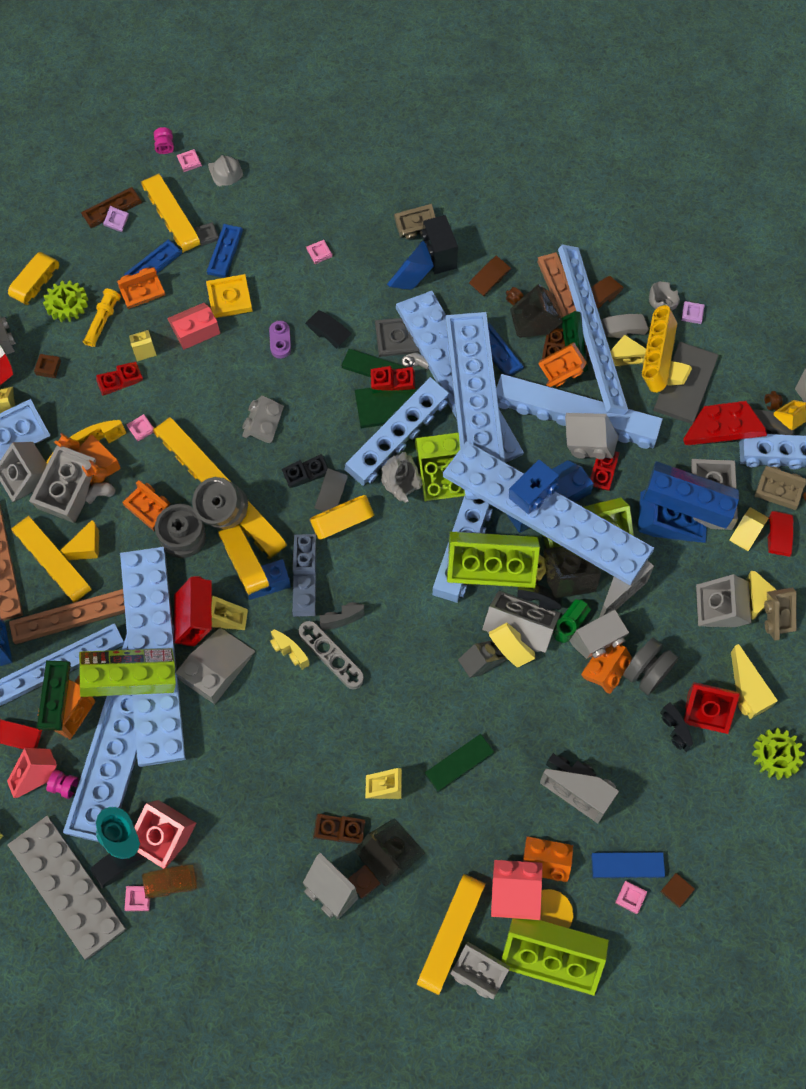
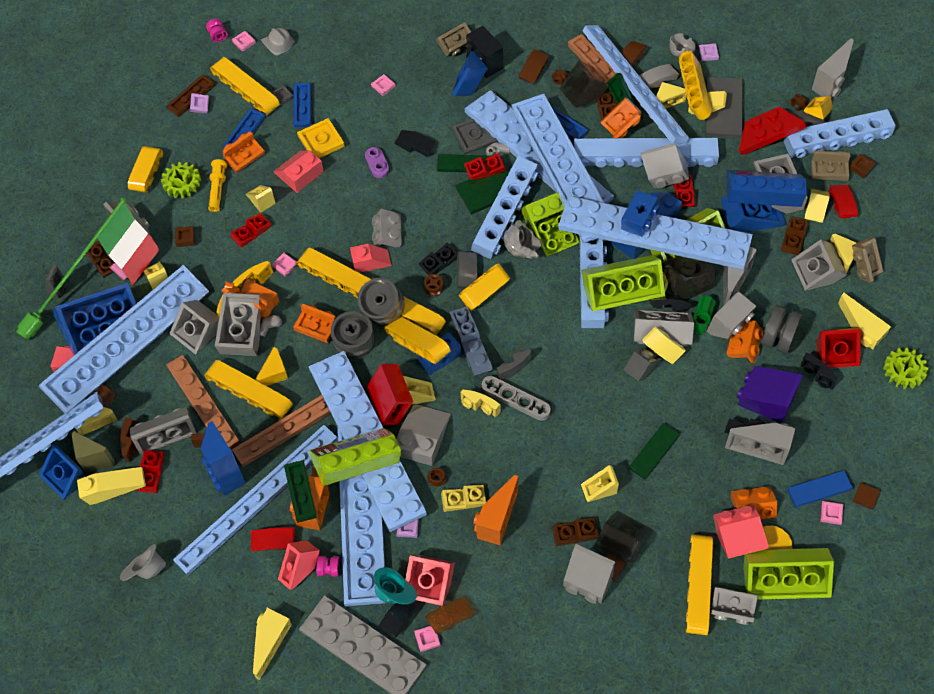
camera: 15 degrees left, 5 degrees down
(163, 770) = (409, 530): none -> lavender tile
(213, 713) = (436, 472): none -> reddish brown plate
(231, 447) = (369, 257): none -> coral slope
(233, 752) = (464, 498): none -> light yellow slope
(259, 782) = (495, 513): none -> orange slope
(289, 493) = (434, 280): none -> reddish brown wheel
(610, 735) = (769, 392): none -> dark purple slope
(709, 558) = (794, 235): none -> reddish brown slope

